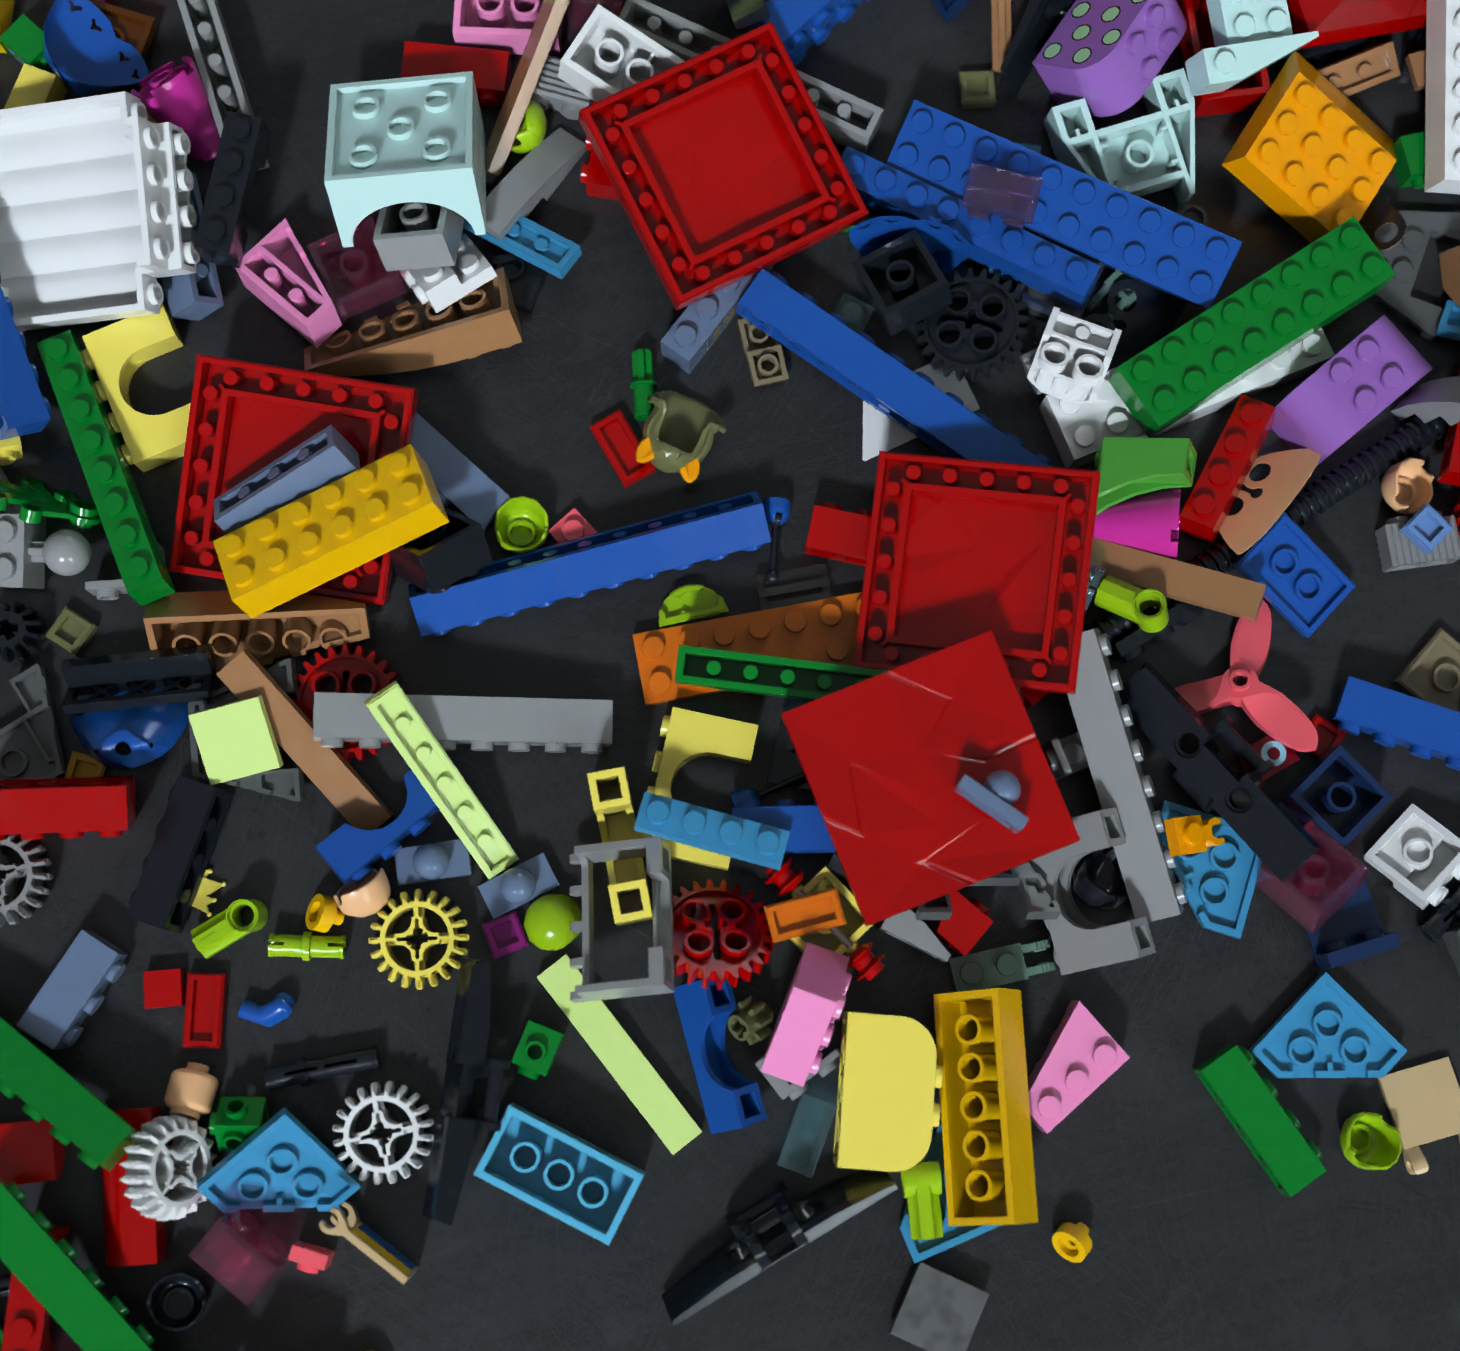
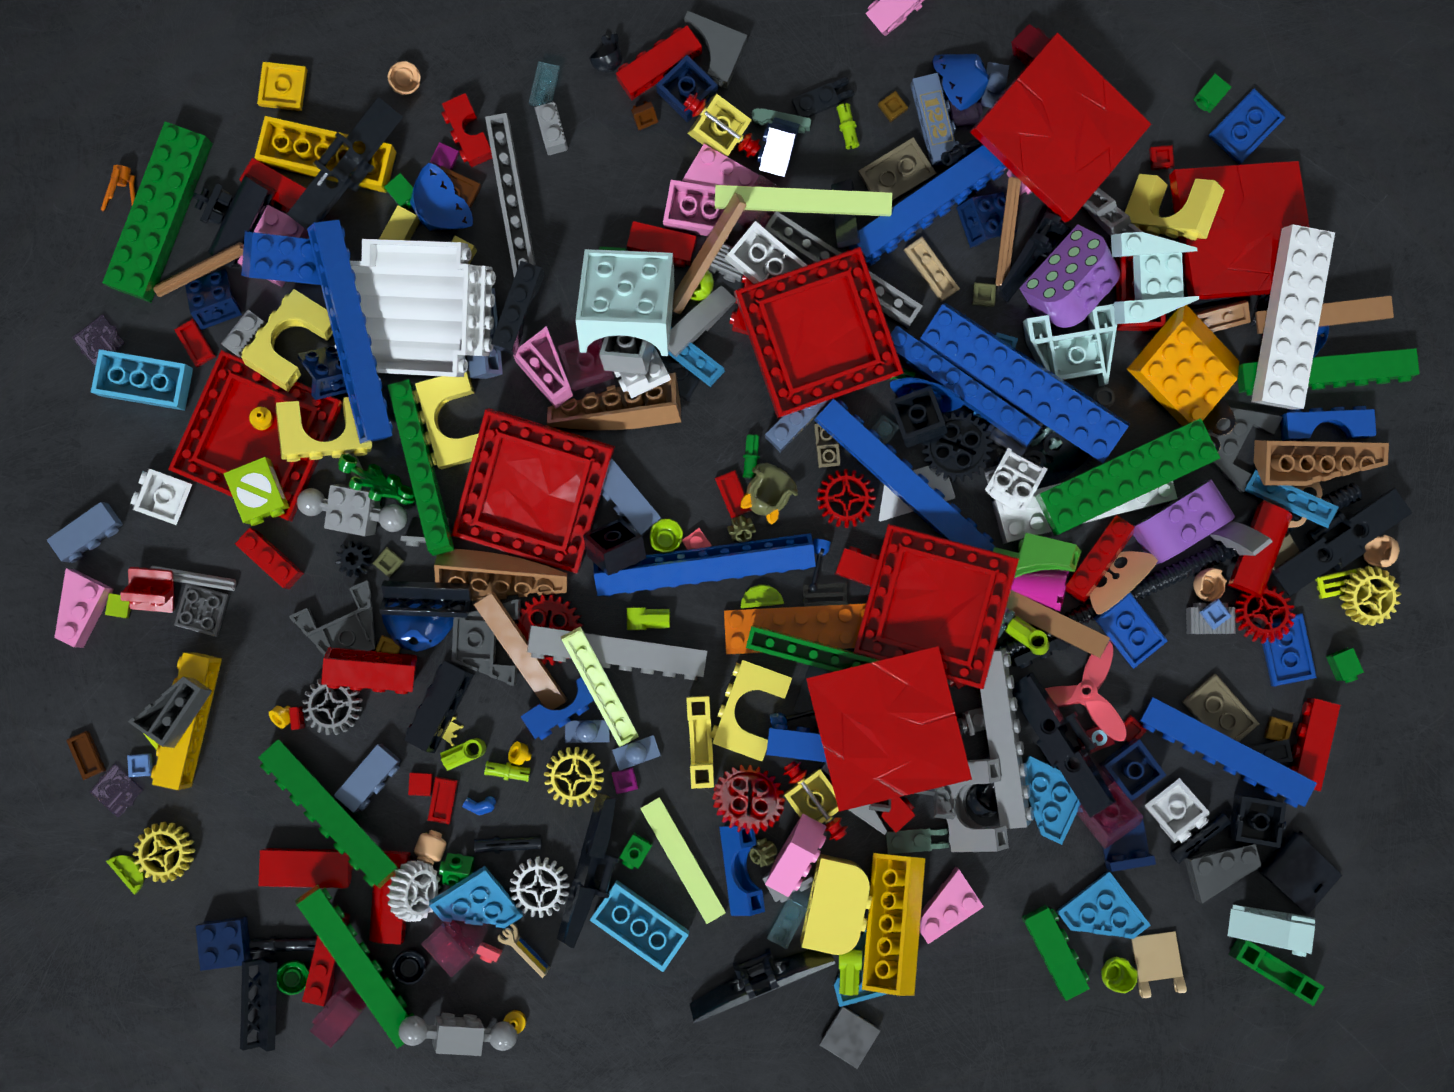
camera: 15 degrees right, 5 degrees up
(180, 98) = (490, 245): dark pink cone -> none
(235, 740) = (480, 645): yellowish green tile -> none
(293, 475) = (529, 497): sand blue brick -> none
(330, 531) = (552, 529): yellow brick -> none
(365, 897) = (545, 748): light nougat hair -> none
(498, 664) = (647, 618): none -> lime piece
(549, 921) = (654, 776): lime hair -> none
(643, 499) = (741, 529): none -> olive gear
(661, 955) = (715, 811): light grey hinge -> none
(712, 830) = (755, 741): dark azure plate -> none
(805, 915) = (803, 797): orange tile -> none
(820, 426) = (845, 479): none -> red gear
(888, 60) = (931, 269): none -> tan tile
(995, 797) = (927, 746): sand blue tile -> none
(1001, 195) = (985, 375): clear purple brick -> none
(1072, 1241) = (934, 1007): yellow tile -> none
(1190, 834) = (1041, 780): light orange plate -> none

